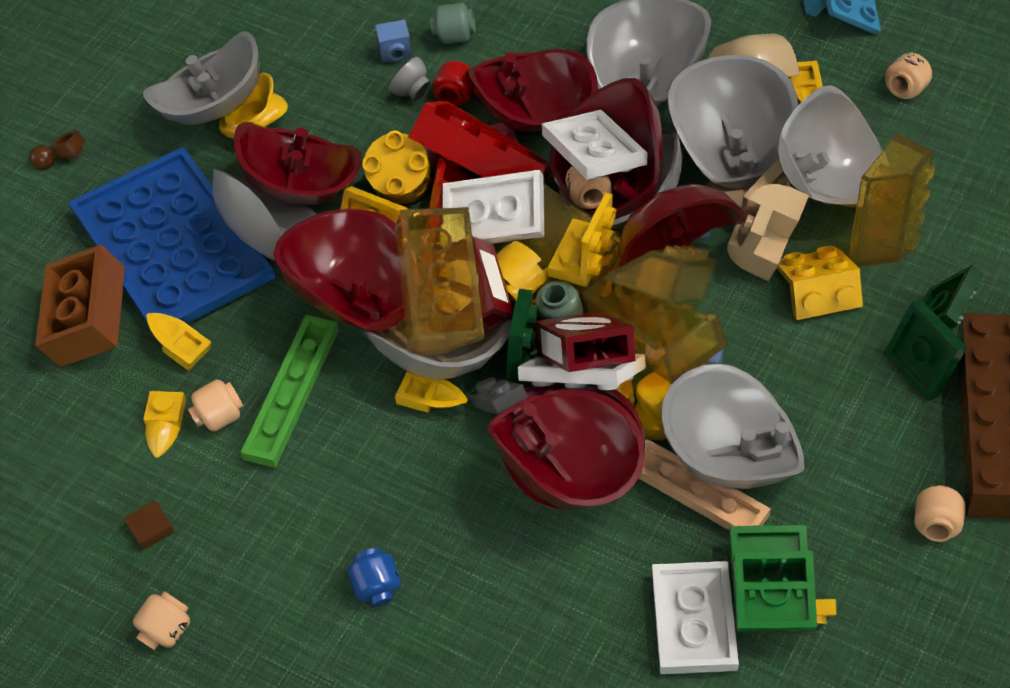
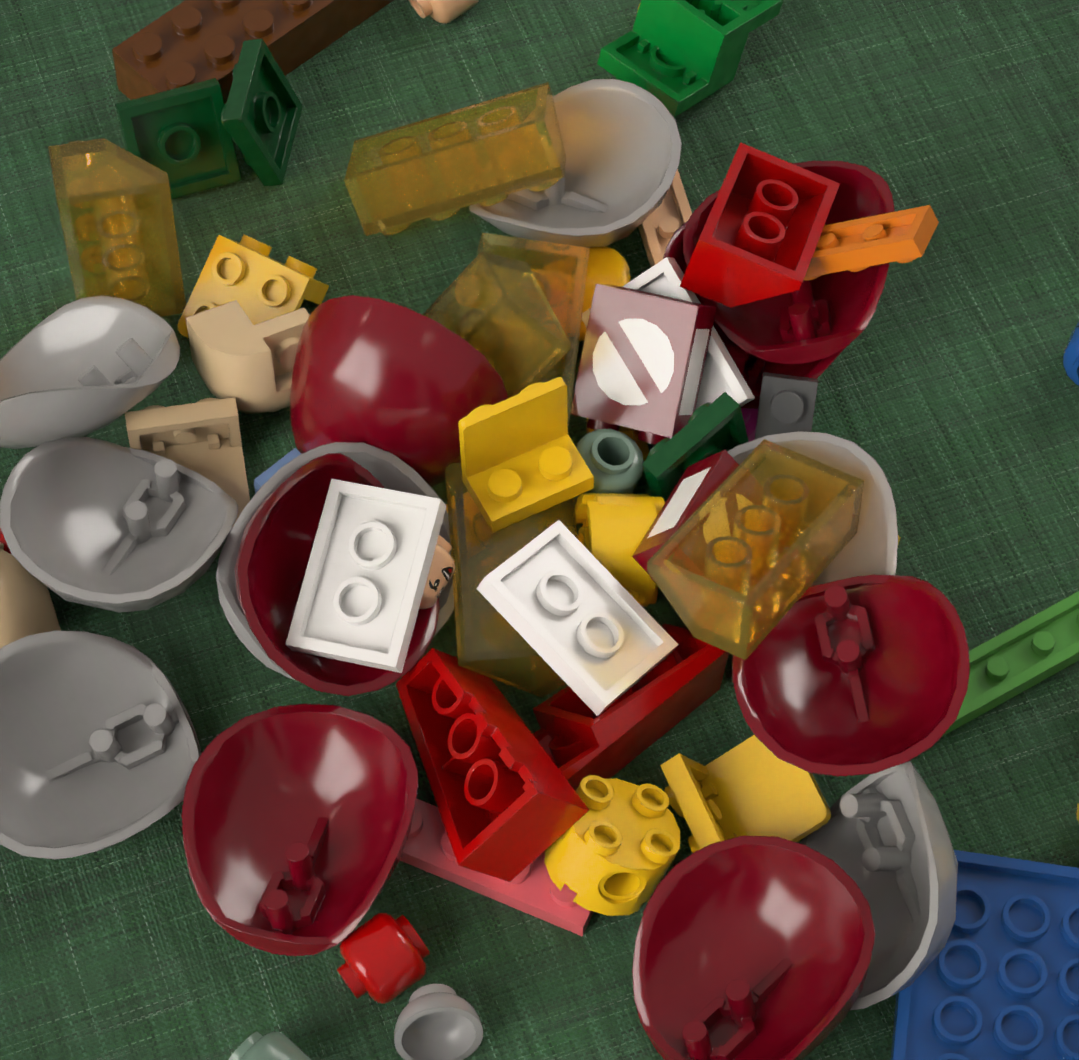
camera: 145 degrees left, 5 degrees up
(536, 432) = (873, 241): none -> orange plate
(584, 418) = (759, 230): none -> red slope
(694, 617) = (791, 84): white plate -> none
(802, 396) = (456, 161): none -> clear yellow slope

